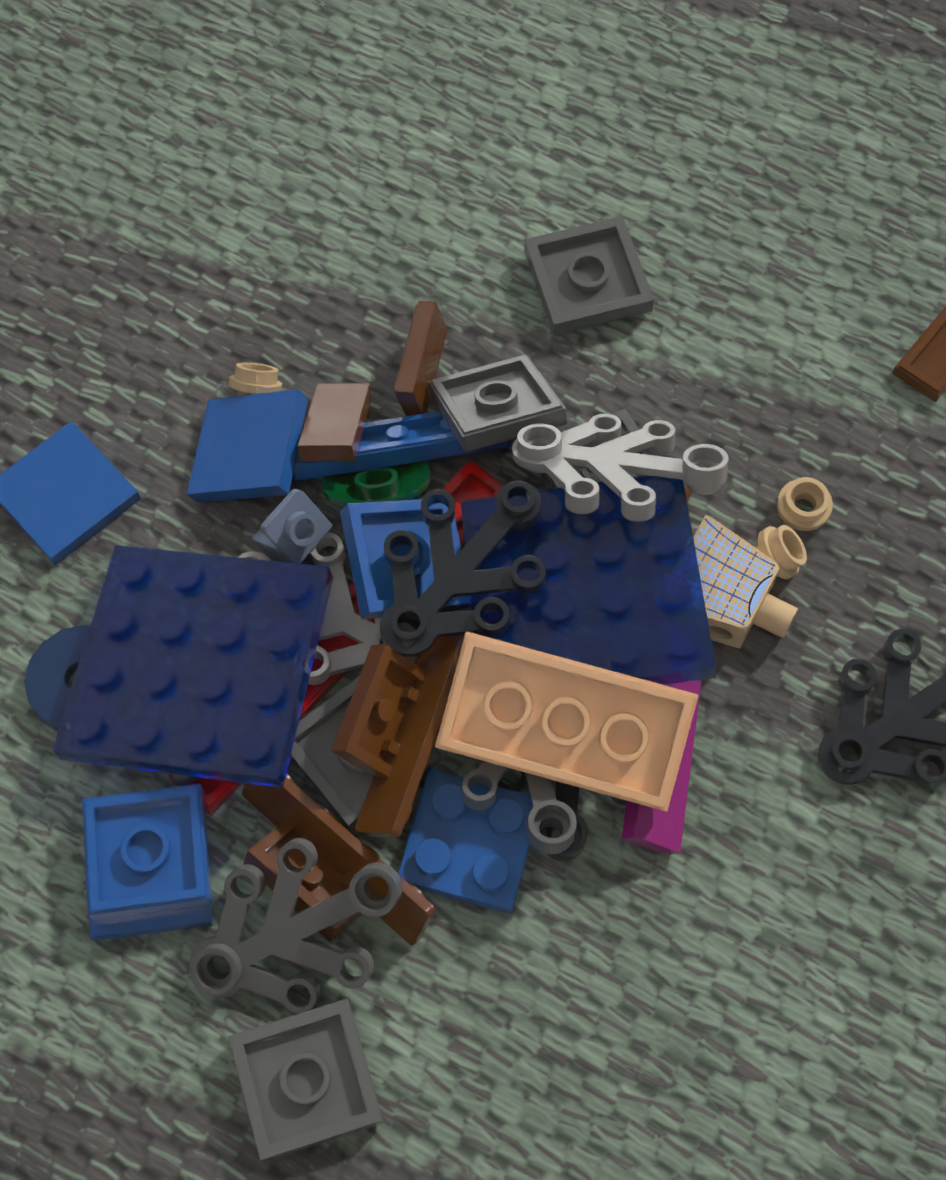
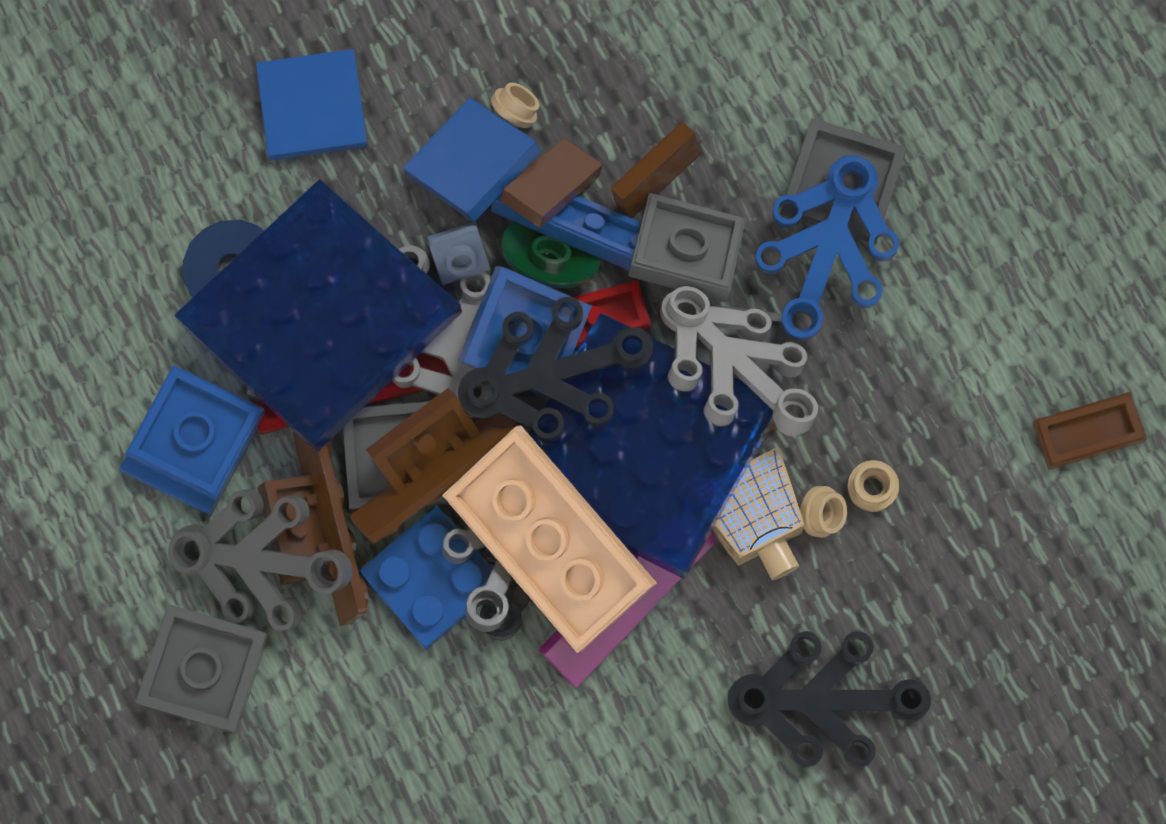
camera: 35 degrees right, 10 degrees up
(619, 320) = (830, 238): none -> blue plant

